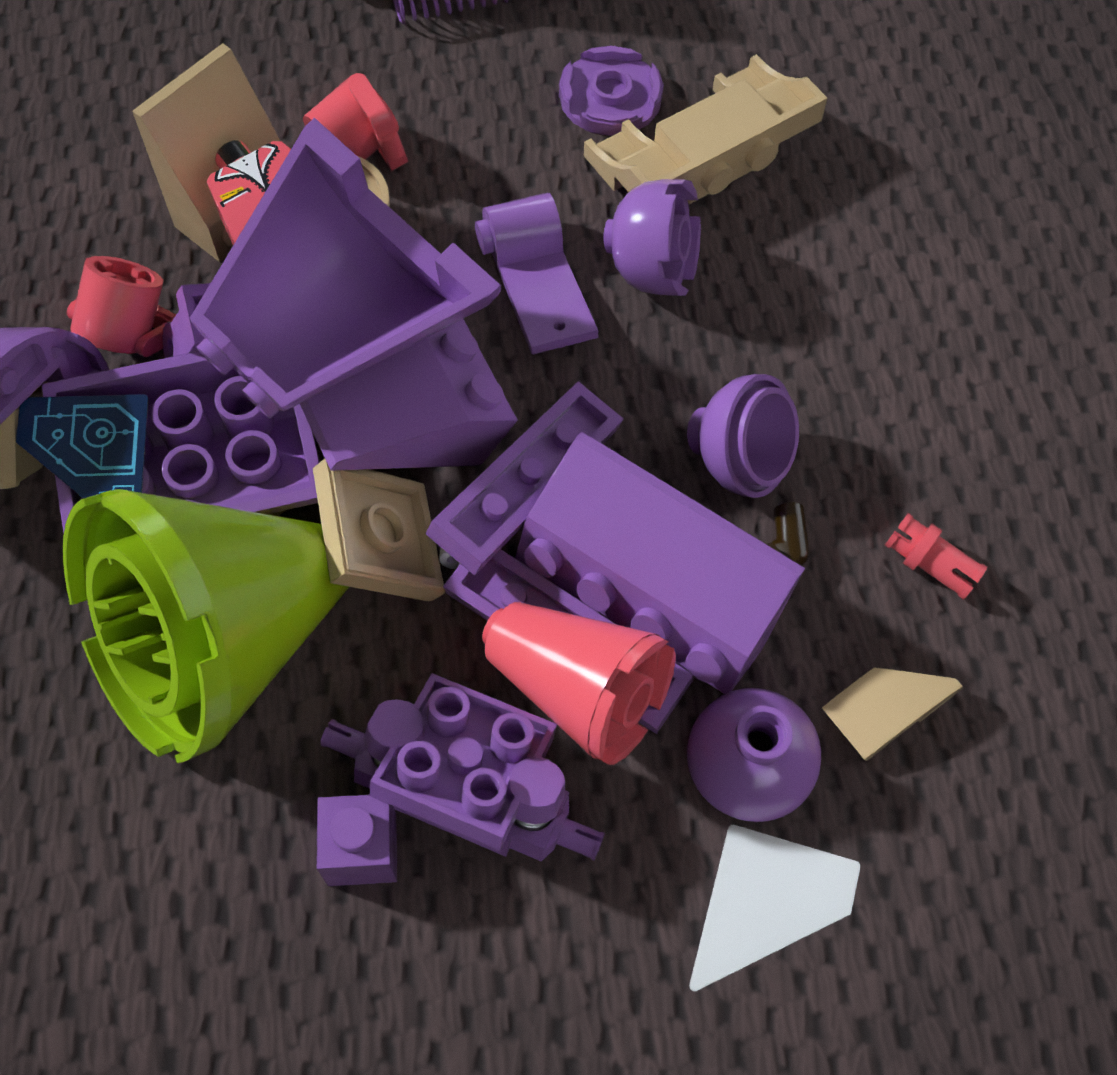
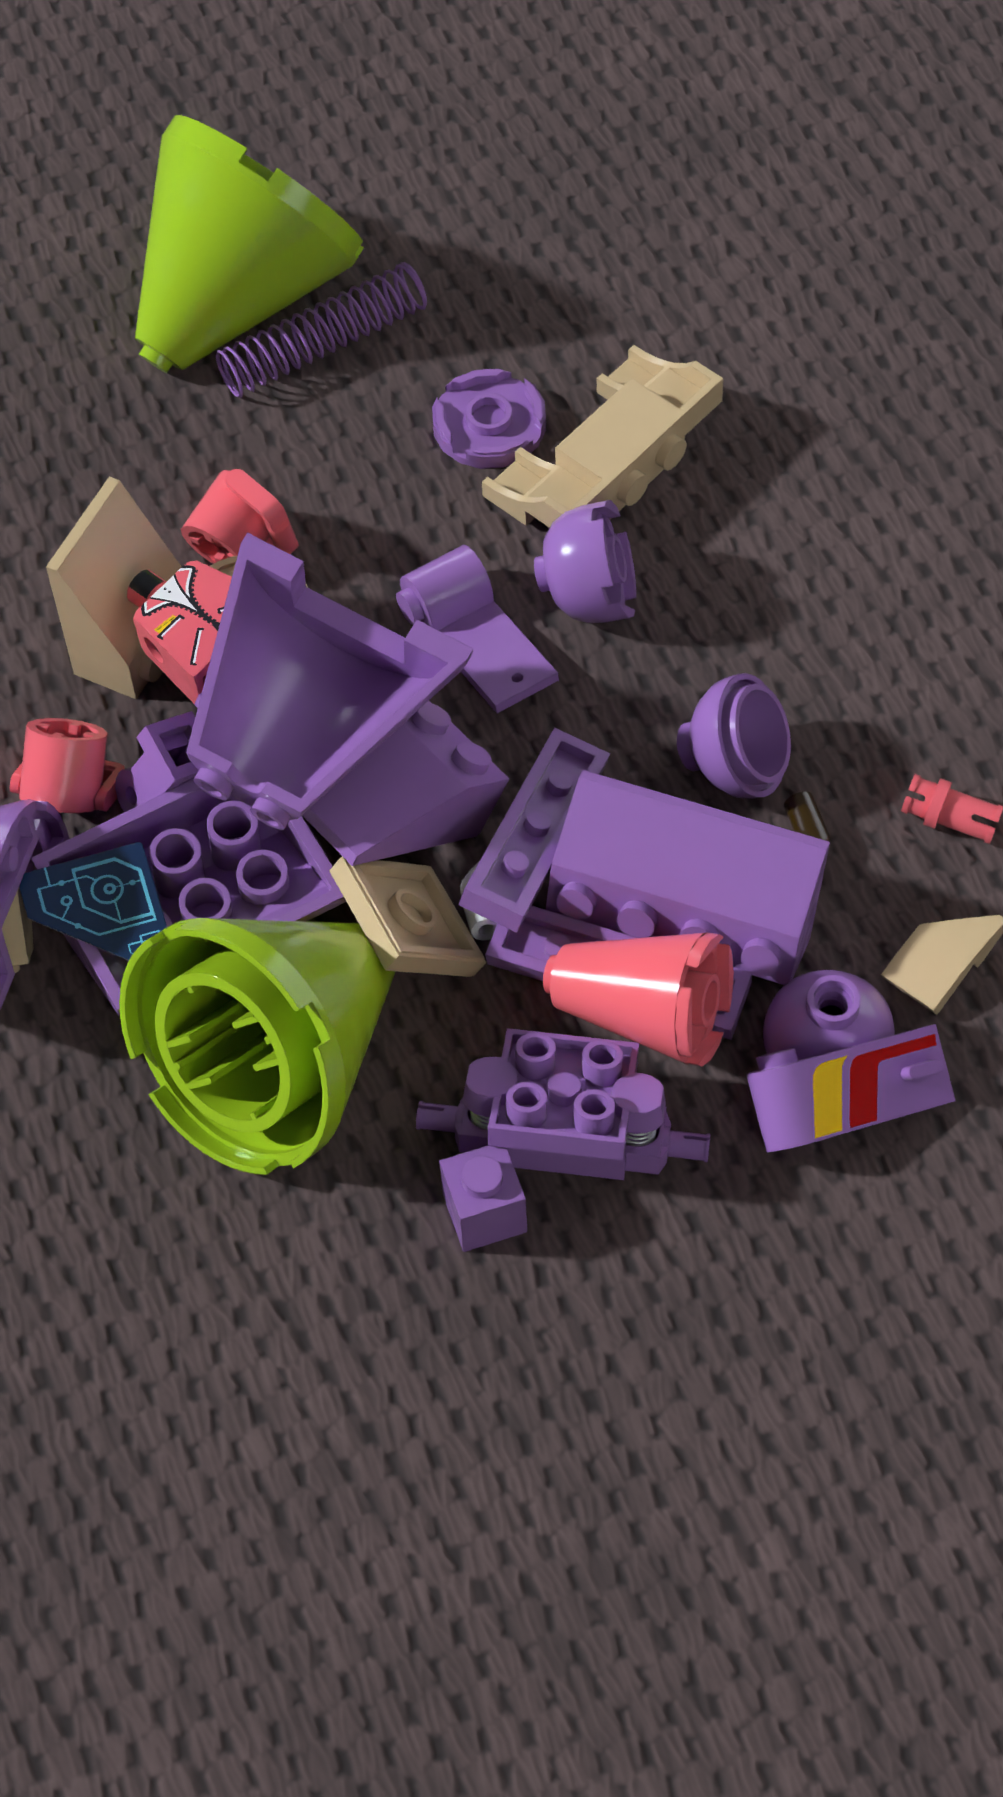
camera: 10 degrees left, 5 degrees down
(753, 829) = (848, 1088): none -> medium lavender door
(768, 898) = (880, 1164): white sticker -> none

